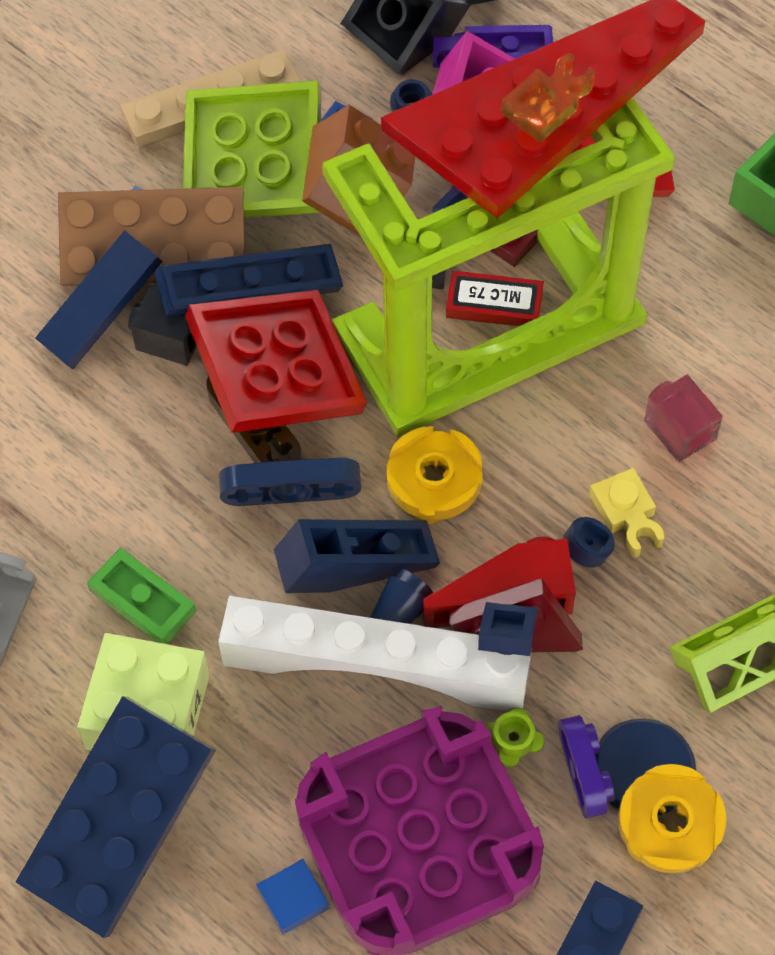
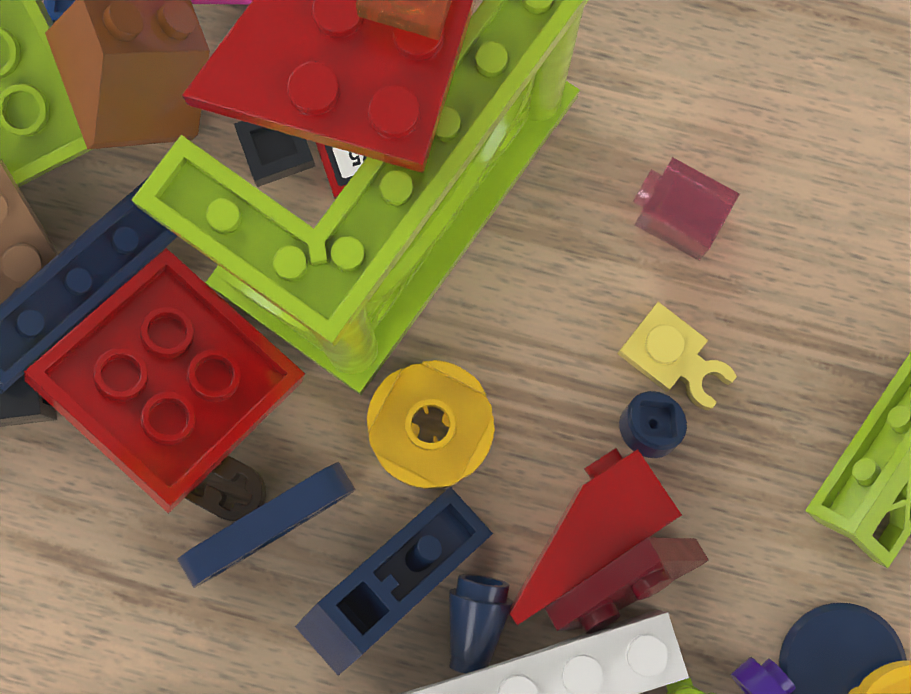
camera: 30 degrees left, 20 degrees up
(507, 629) = (642, 626): dark blue plate -> none

